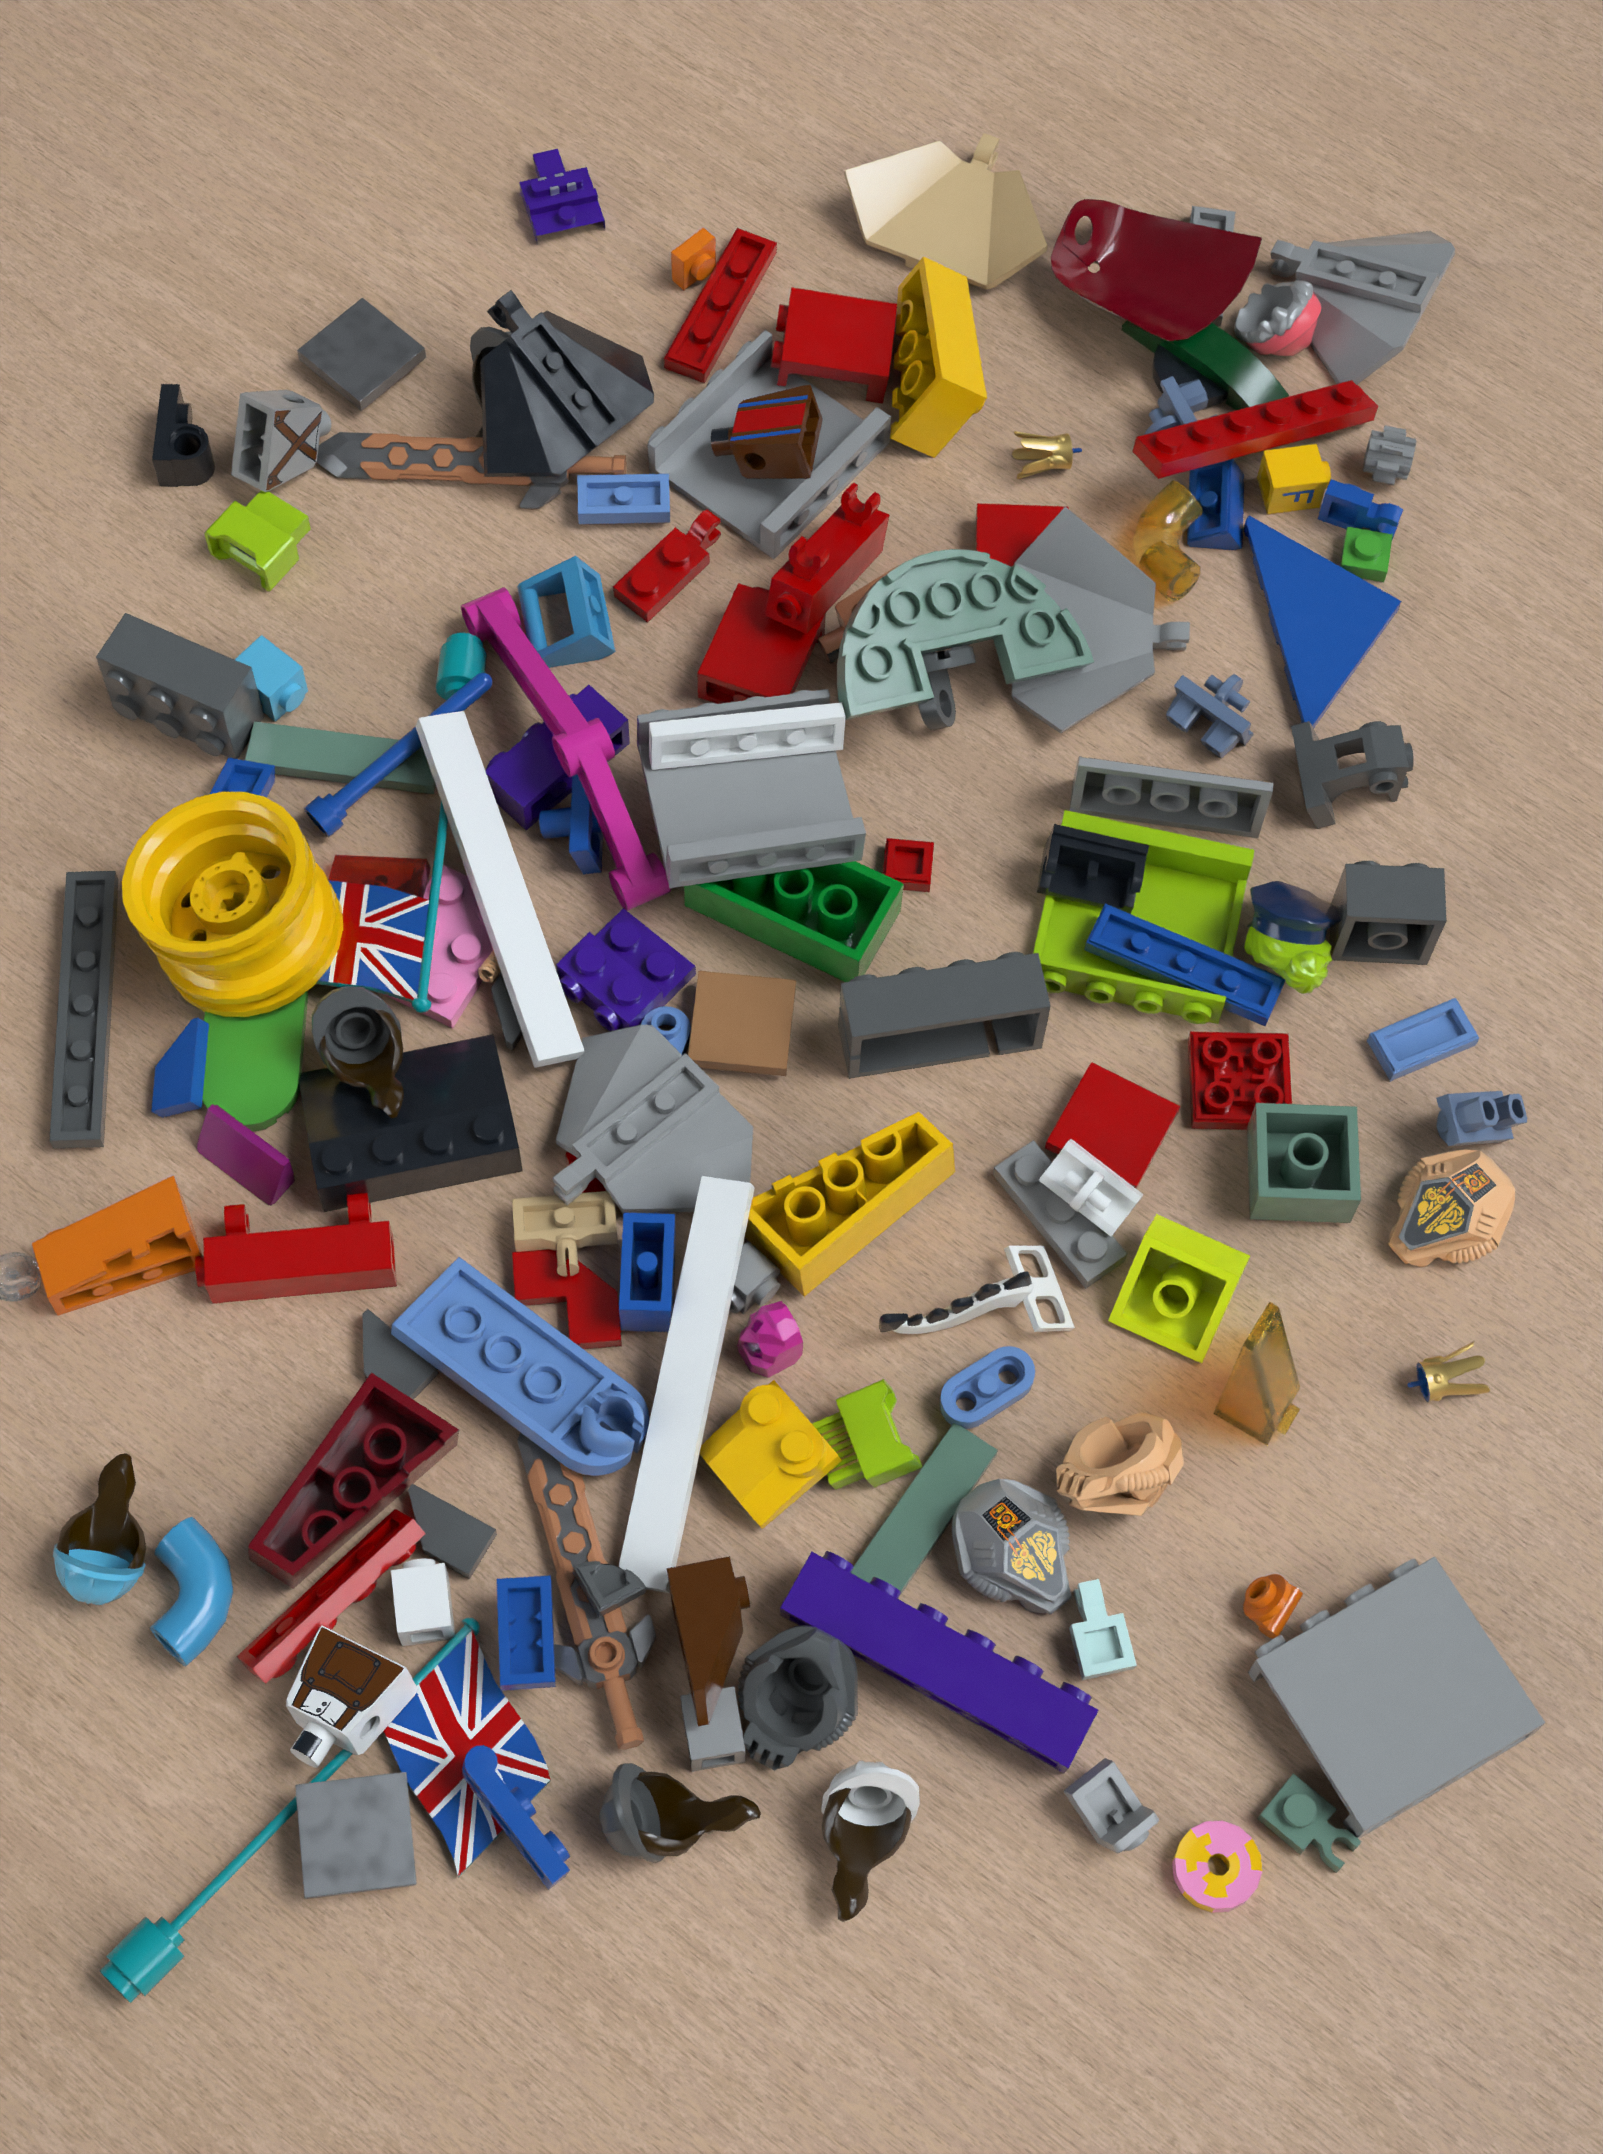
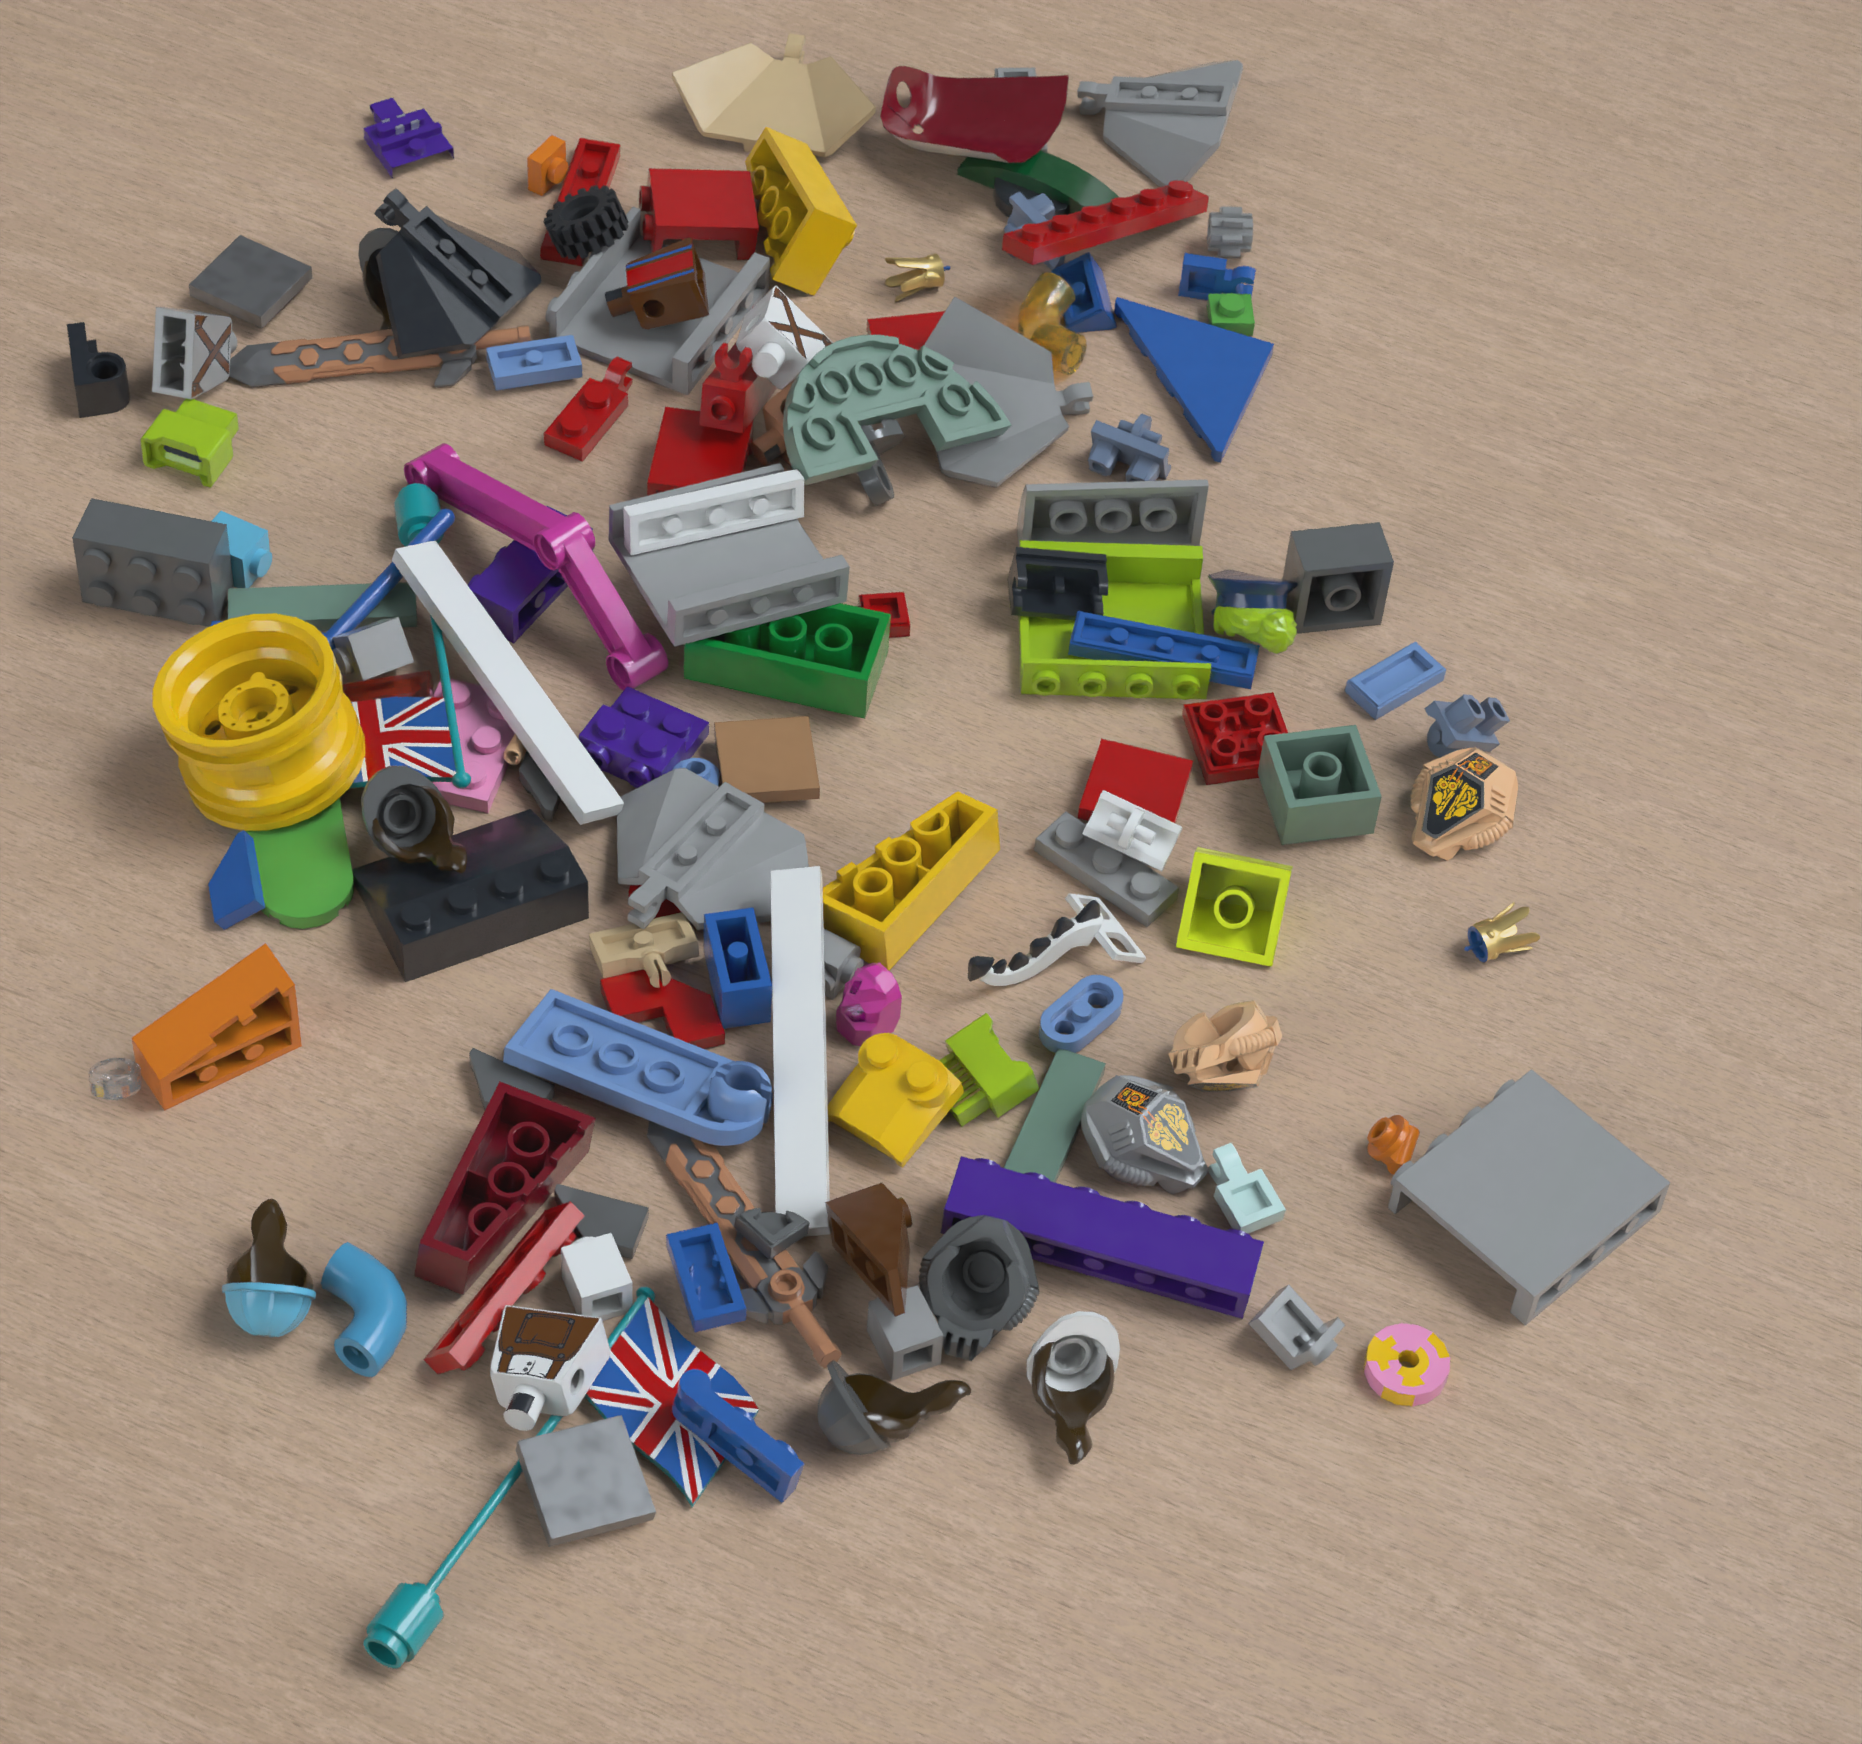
camera: 15 degrees left, 15 degrees down
(84, 1010) = (126, 848): dark grey plate -> none
(244, 1156) = (318, 941): magenta slope -> none
(297, 1260) = (394, 1017): red brick -> none
(374, 825) = (372, 650): none -> light grey brick
(580, 825) = (565, 622): blue tile -> none
(587, 609) = (508, 430): dark azure tile -> none
(710, 343) = (586, 222): none -> black tyre
(867, 534) = (779, 338): none -> white torso
(940, 1014) = (938, 717): dark grey piece -> none
(1262, 1382) = (1336, 949): clear yellow wedge -> none
(1279, 318) = (1101, 140): light grey hair -> none
(1293, 478) = (1148, 262): yellow brick -> none
(1301, 1818) = (1475, 1311): sand green plate -> none
(1322, 780) = (1248, 486): dark grey tile -> none

